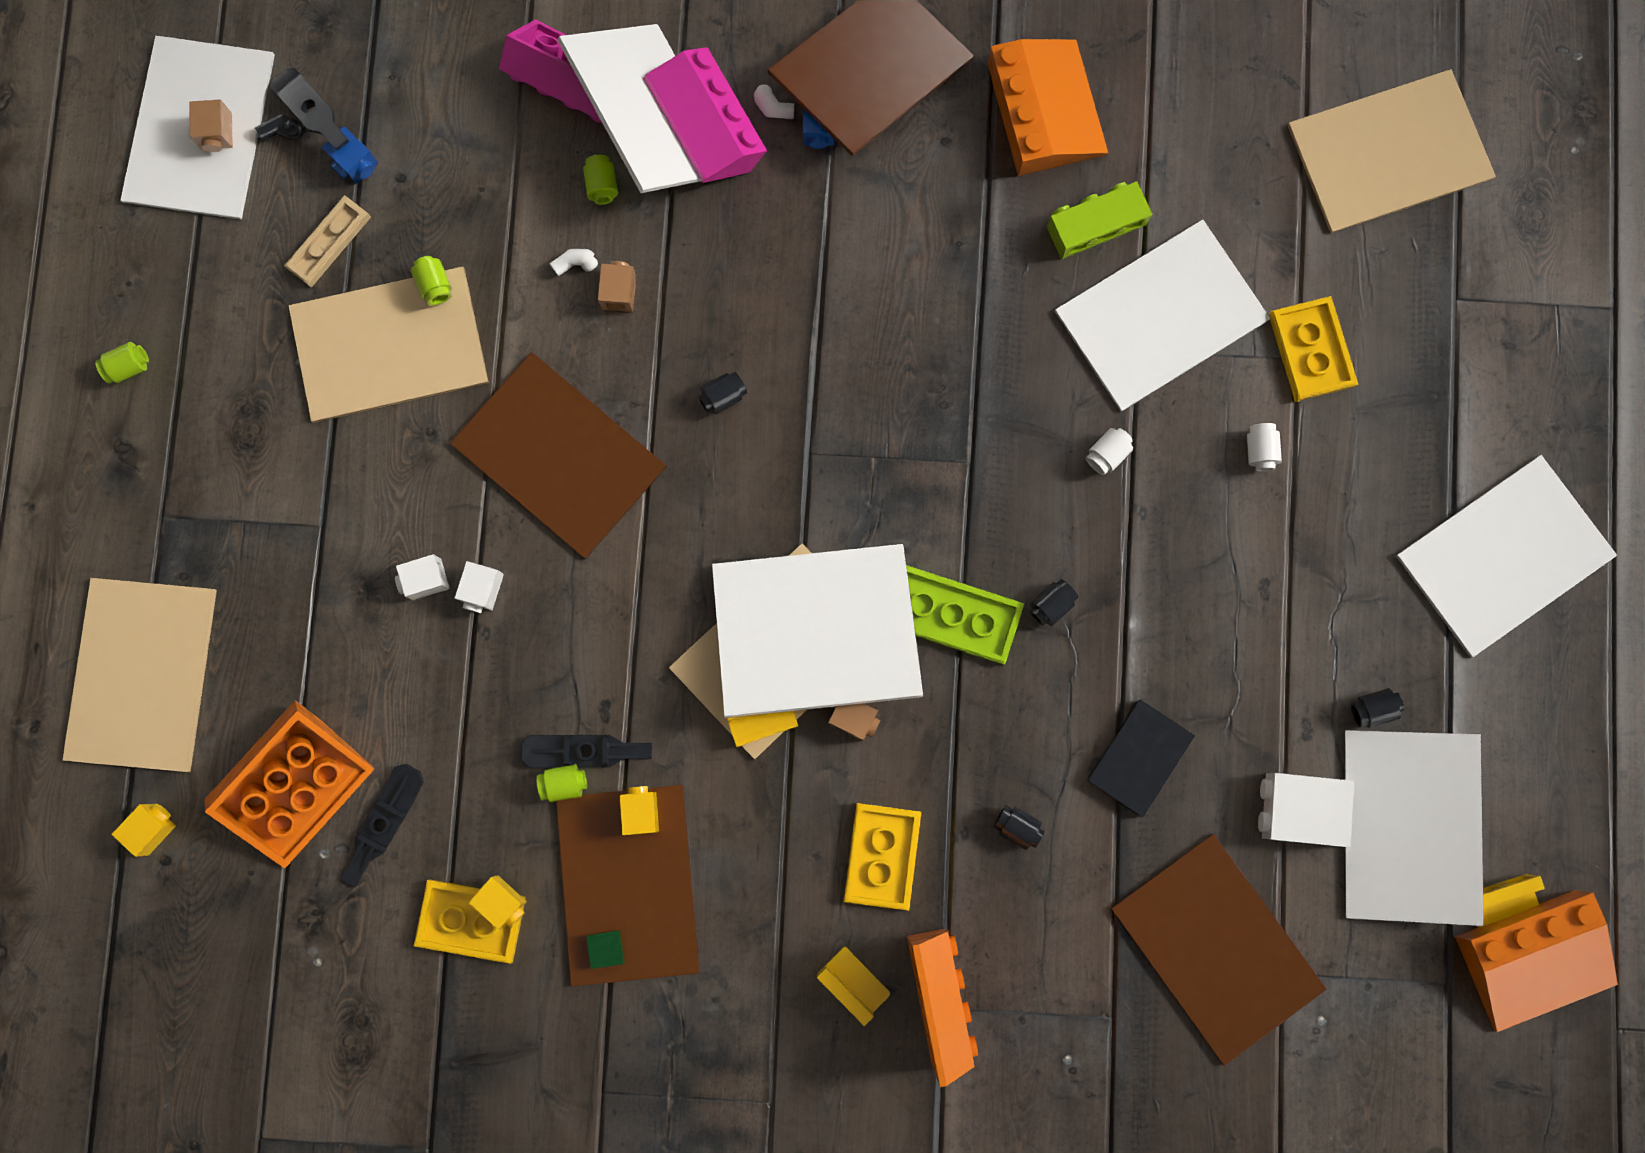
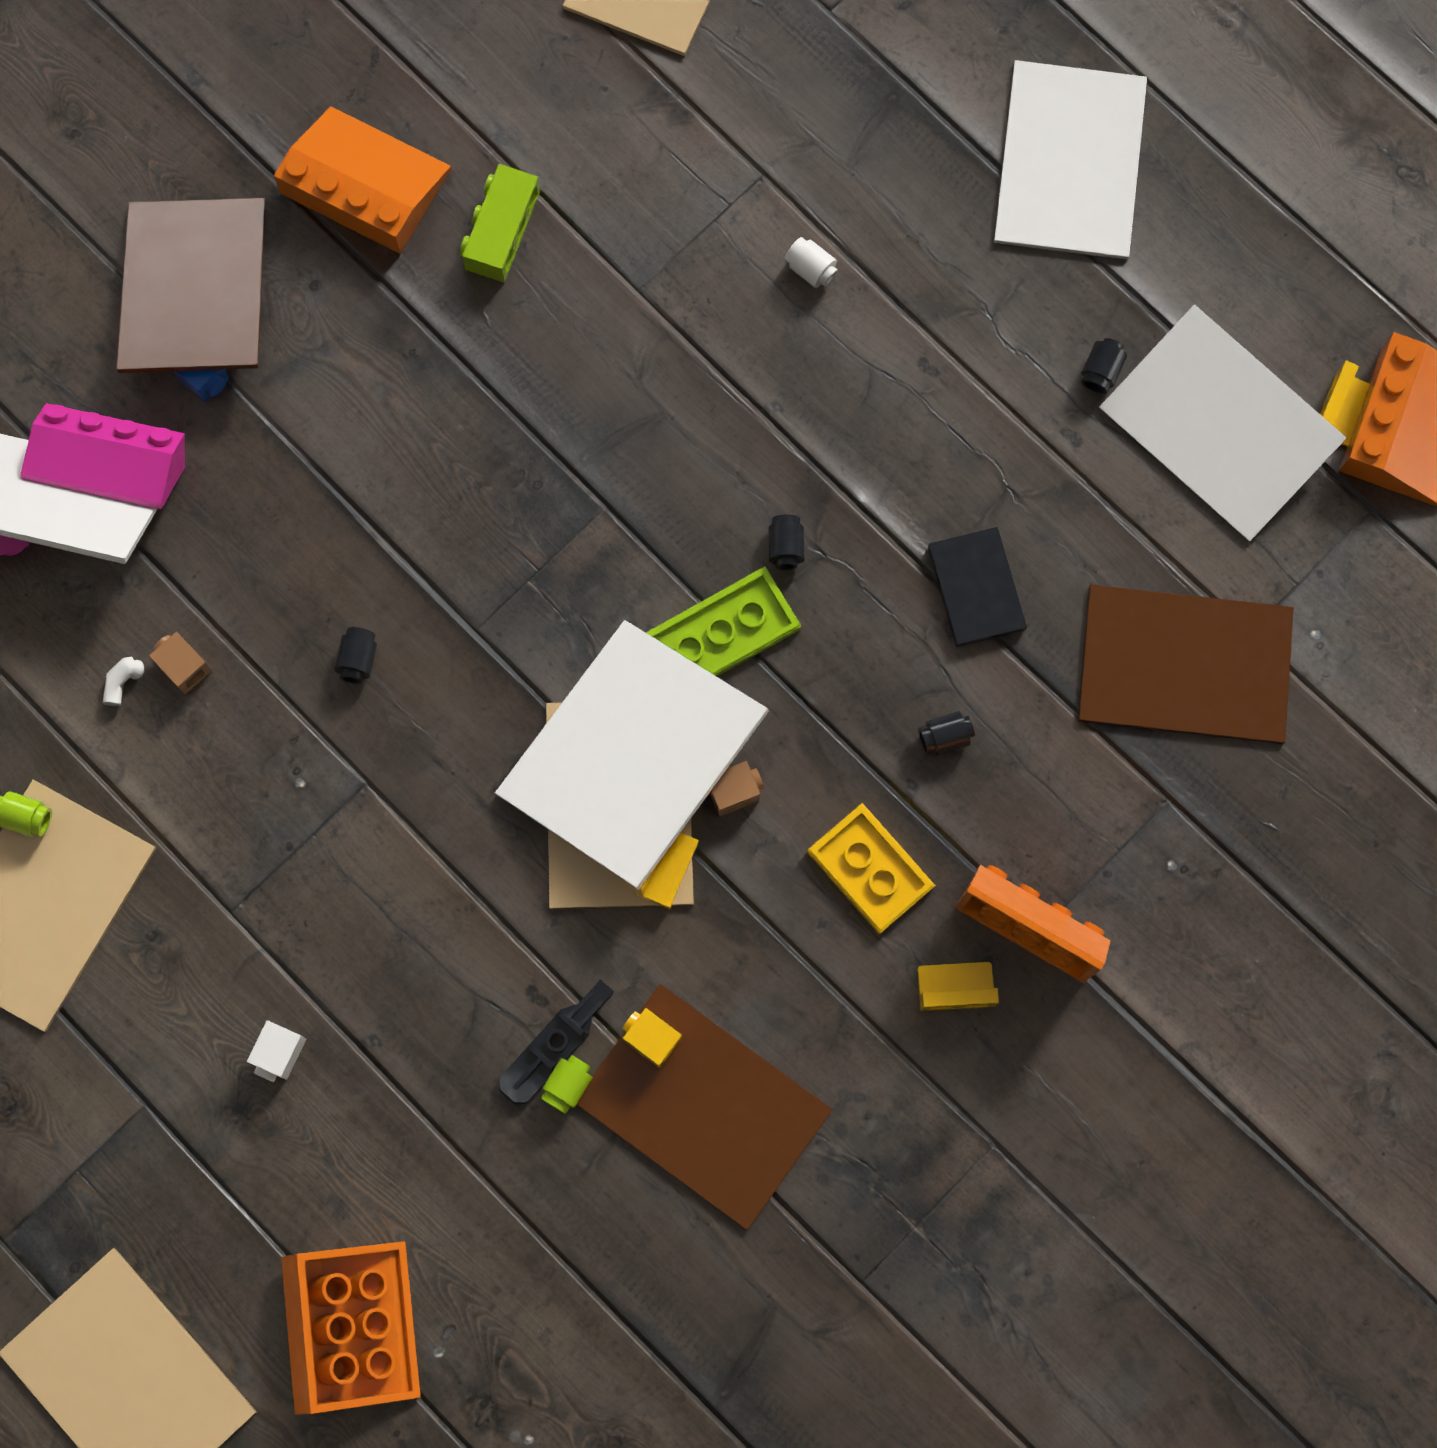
camera: 50 degrees left, 5 degrees down
(391, 807) = (452, 1253): black piece -> none
(456, 927) = (613, 1271): yellow tile -> none
(478, 587) = (330, 1008): white brick -> none
(499, 903) = (622, 1225): yellow brick -> none
(558, 455) = (277, 842): reddish brown piece -> none
(600, 179) = (71, 594): lime brick -> none
(605, 949) = (742, 1170): dark green tile -> none
(769, 104) = (144, 398): white arm -> none
(1109, 451) = (702, 385): white brick -> none
(1162, 315) = (627, 246): white piece -> none
(1306, 809) = (1135, 492): white brick -> none
(1313, 349) = (766, 154): yellow tile -> none

